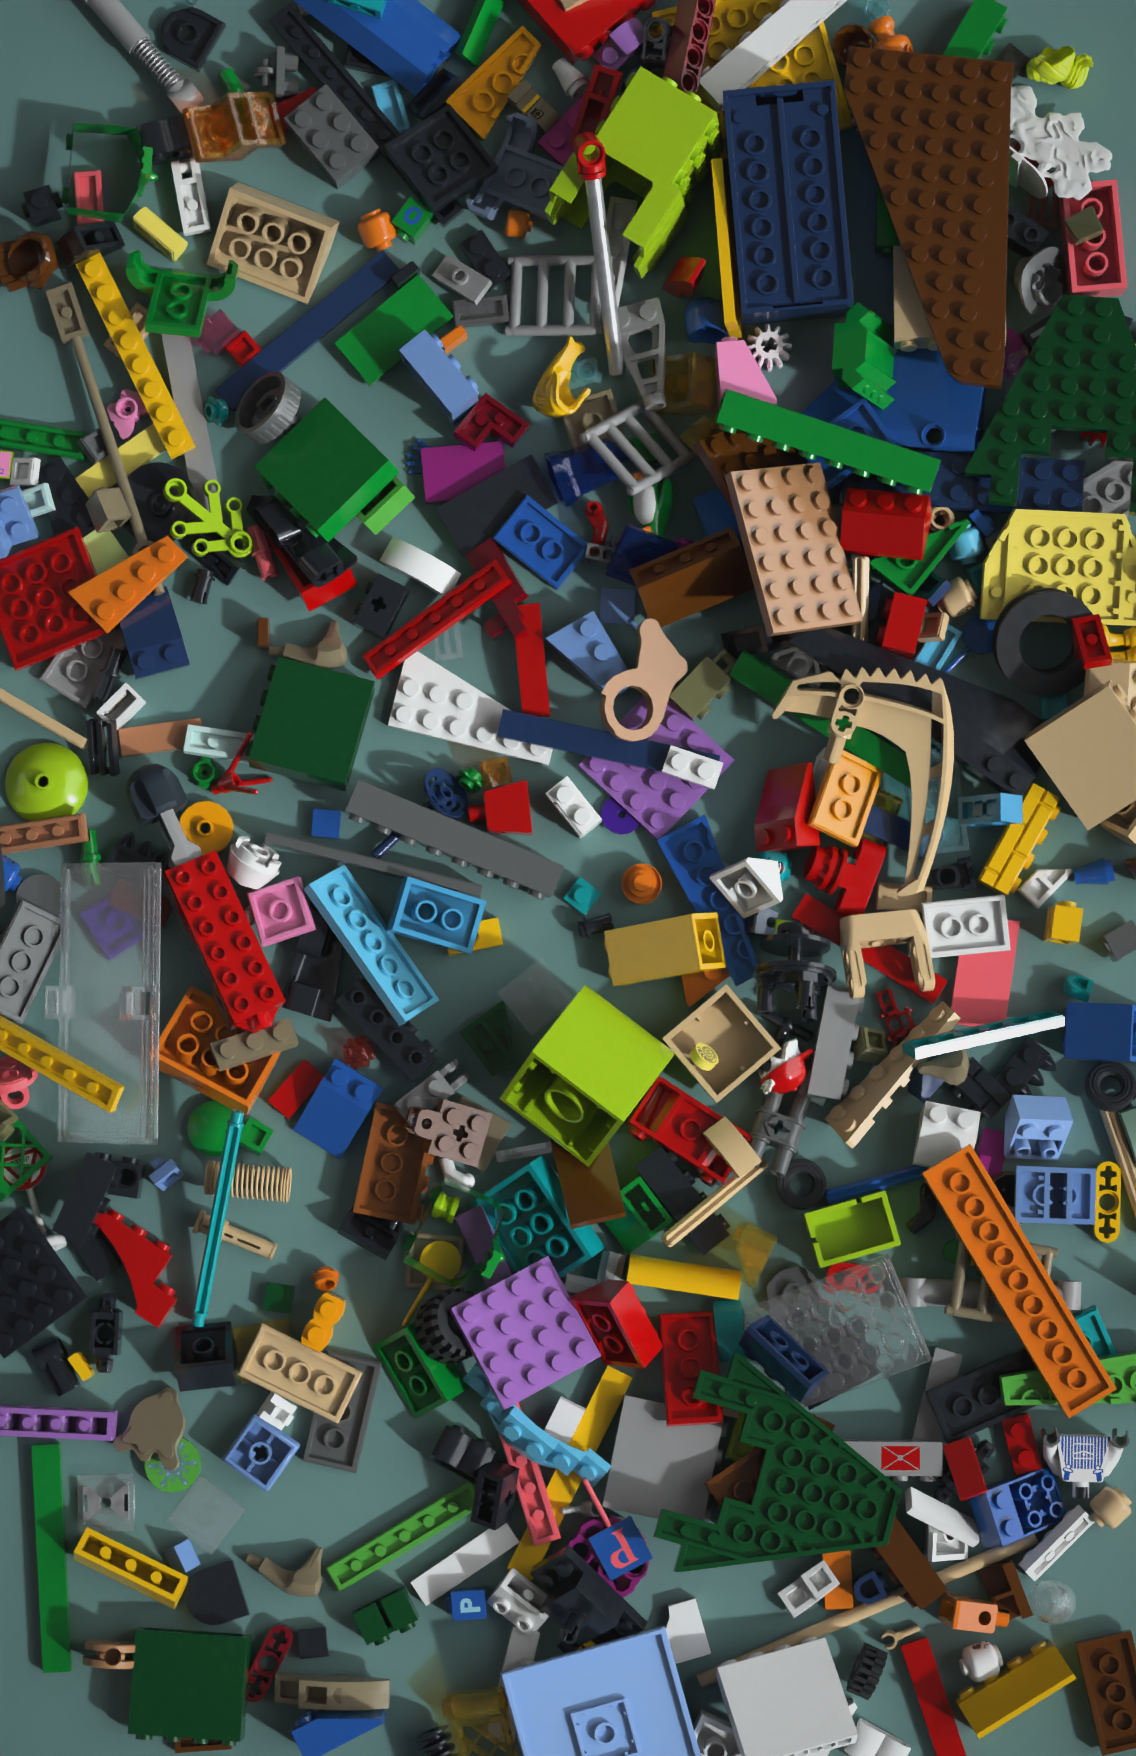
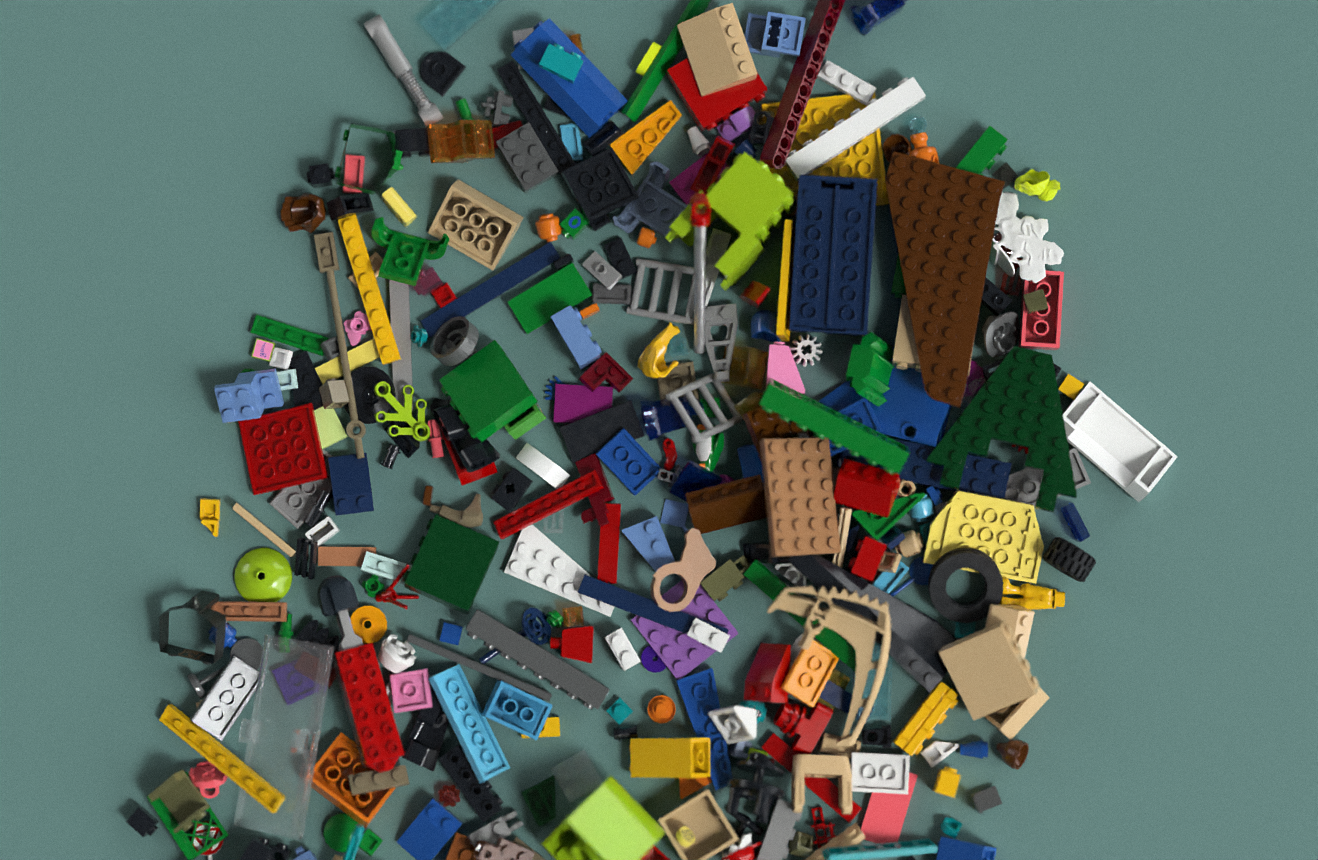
camera: 10 degrees right, 0 degrees up
(122, 587) = (335, 451): orange wing -> none
(191, 197) = (424, 184): white plate -> none
(296, 1089) = (403, 814): red tile -> none
(531, 104) = (669, 157): dark tan leg -> none
(990, 810) = (908, 696): dark azure brick -> none
(1090, 642) = (995, 592): red slope -> none

